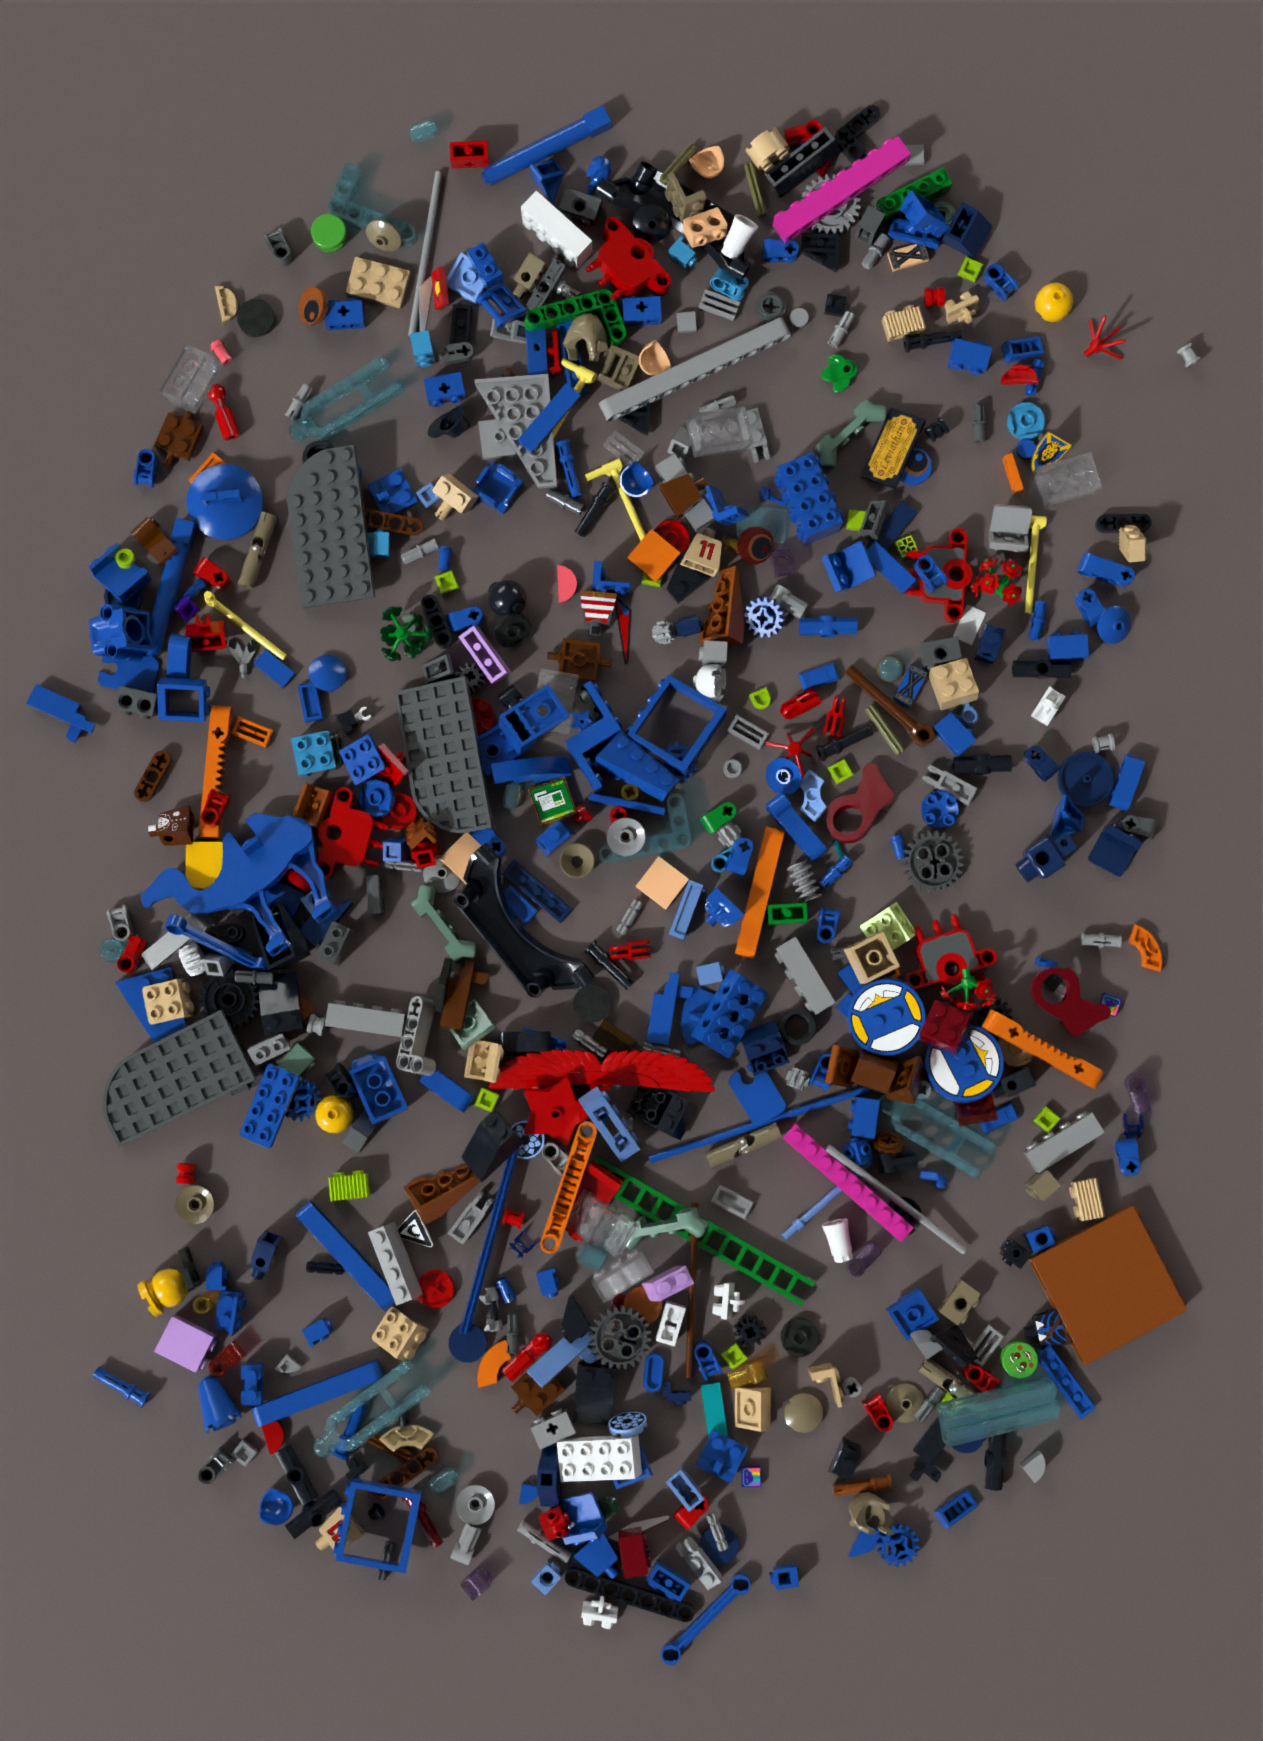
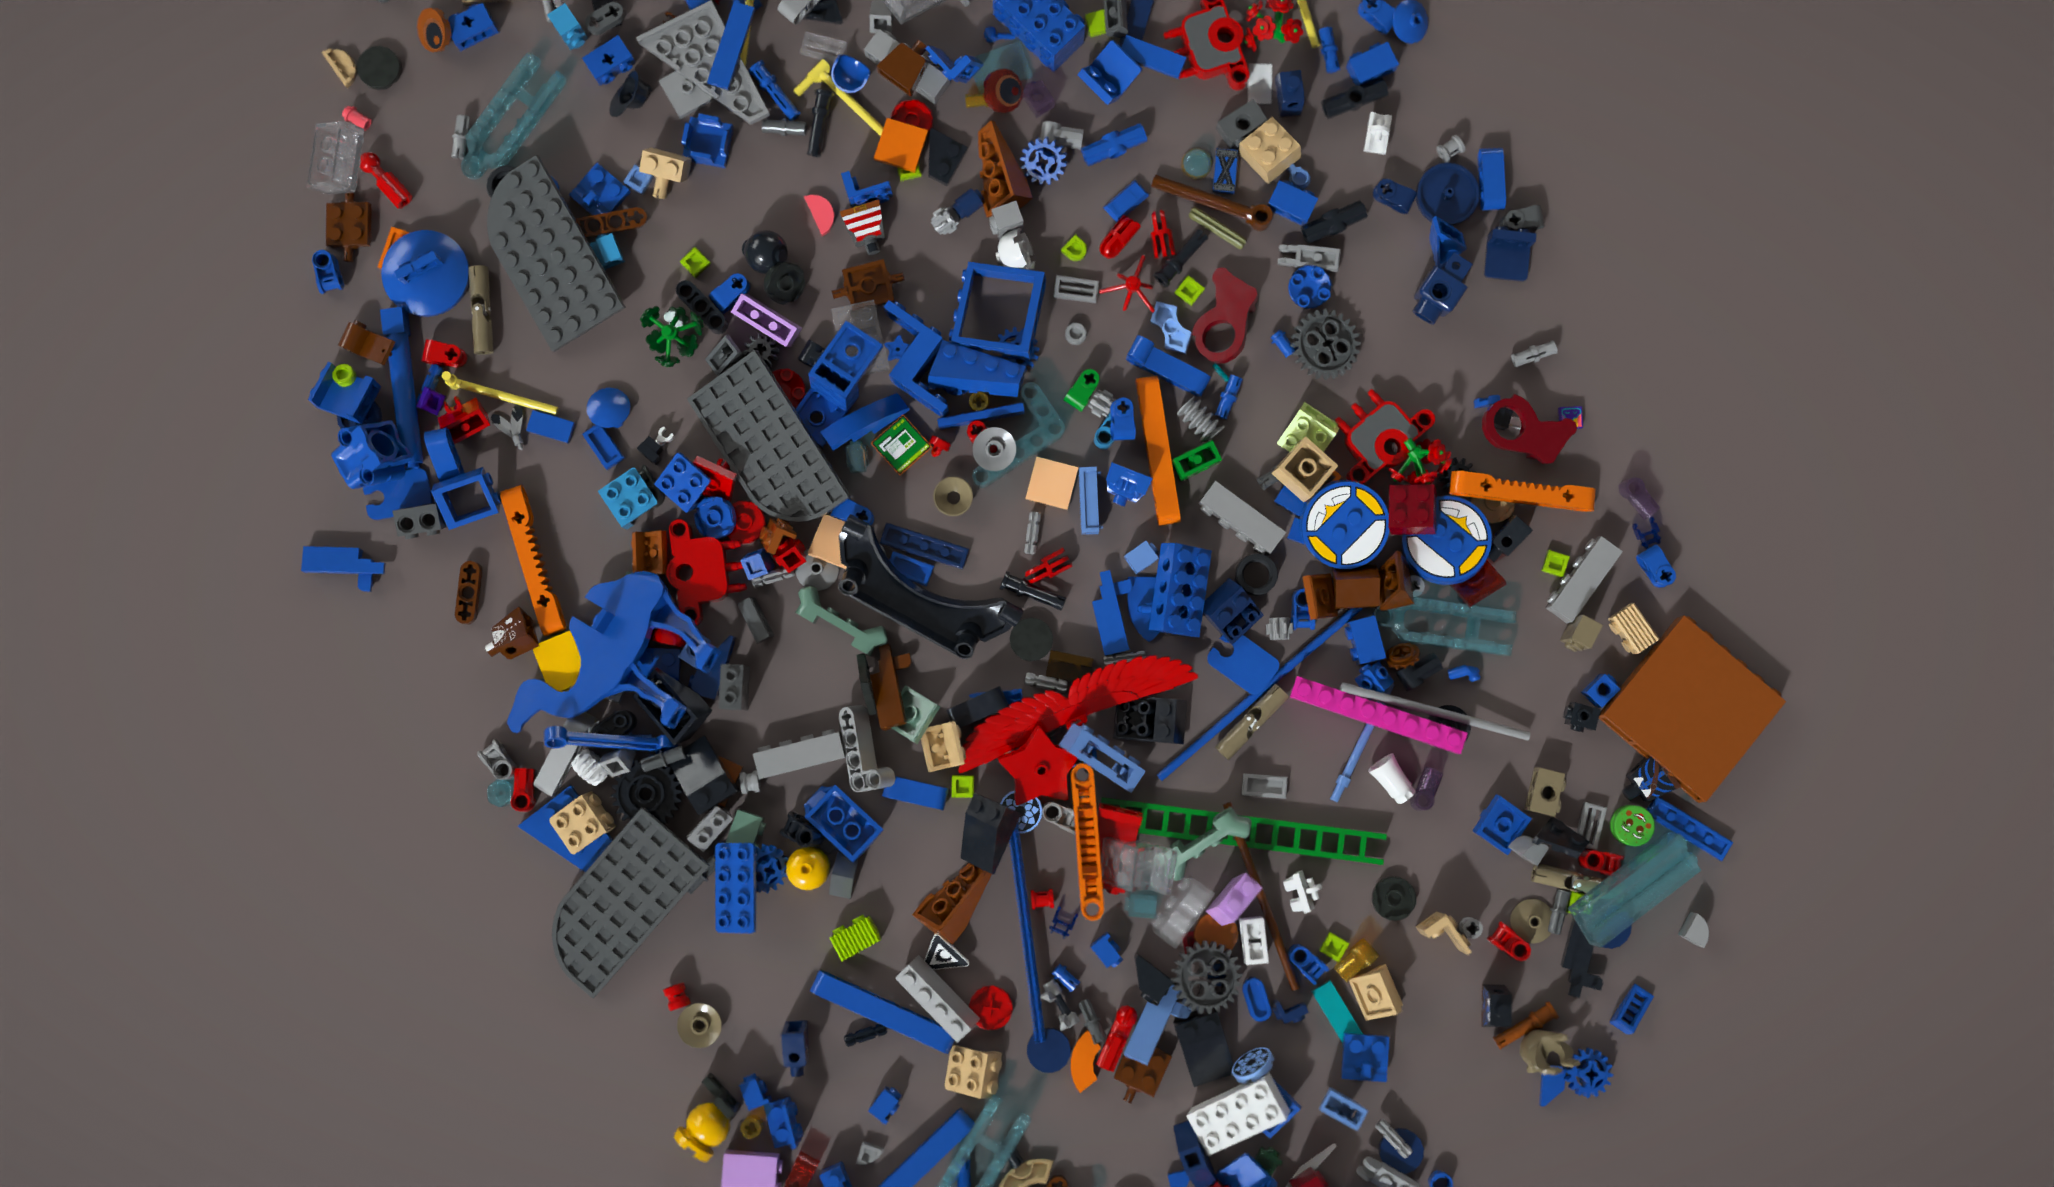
camera: 20 degrees left, 0 degrees up
(215, 806) = (546, 596): red piece -> none
(267, 738) = (573, 502): orange tile -> none
(419, 551) = (653, 241): light grey axle -> none
(444, 558) = (682, 237): blue pin -> none
(469, 1219) = (996, 919): light grey hinge -> none
(547, 1437) = (1174, 1114): light grey brick -> none
(554, 837) = (919, 482): blue torso -> none
(589, 704) = (897, 326): pearl dark grey tile -> none
(624, 619) = (899, 229): sticker -> none
(688, 1519) = (1358, 1138): red piece -> none
(704, 553) = (952, 121): tan torso -> none
(750, 1476) = (1404, 1065): tile -> none
(756, 1328) = (1343, 906): black gear -> none
(778, 781) = (1126, 325): blue dish -> none
(789, 1581) = (1491, 1158): blue brick -> none
(803, 1412) = (1431, 975): dark tan dish -> none
(827, 923) = (1242, 451): blue piece -> none
(905, 544) = (1158, 27): tile -> none
(930, 574) = (1199, 44): blue piece -> none
(995, 1462) = (1653, 943): black piece -> none
(1006, 1114) = (1513, 575): blue tile -> none
(1148, 948) = (1585, 342): orange tile -> none

